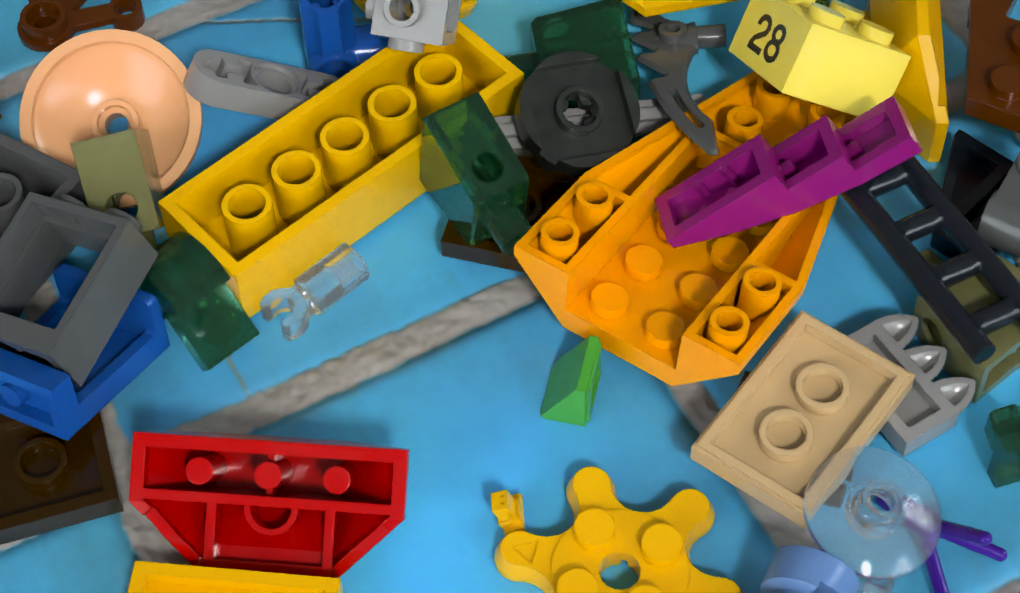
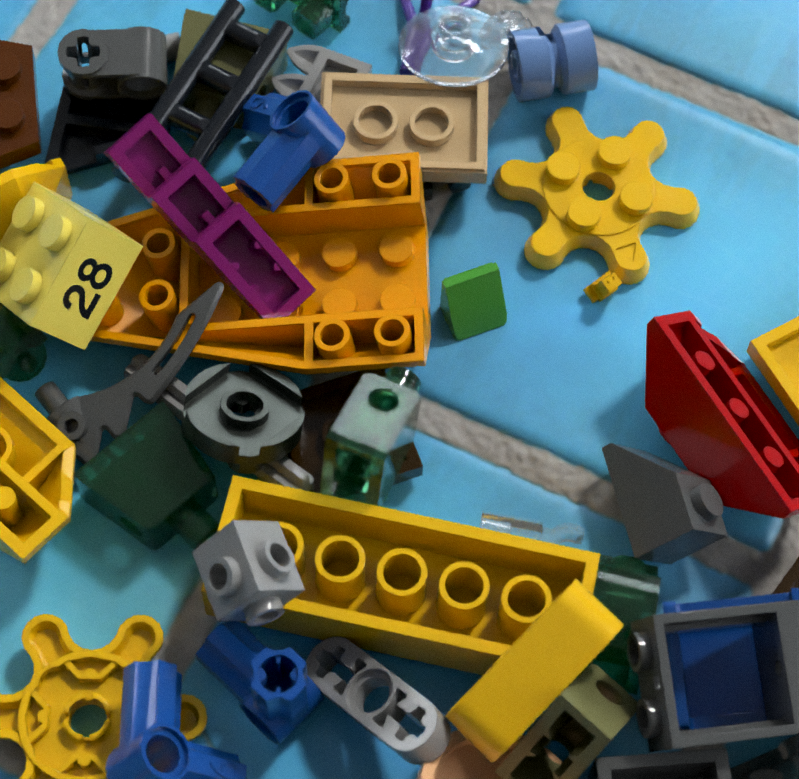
camera: 130 degrees left, 10 degrees up
(178, 156) = (534, 670): none -> yellow beam
(256, 391) = (663, 505): none -> dark grey slope
(827, 268) = (293, 138): none -> blue piece

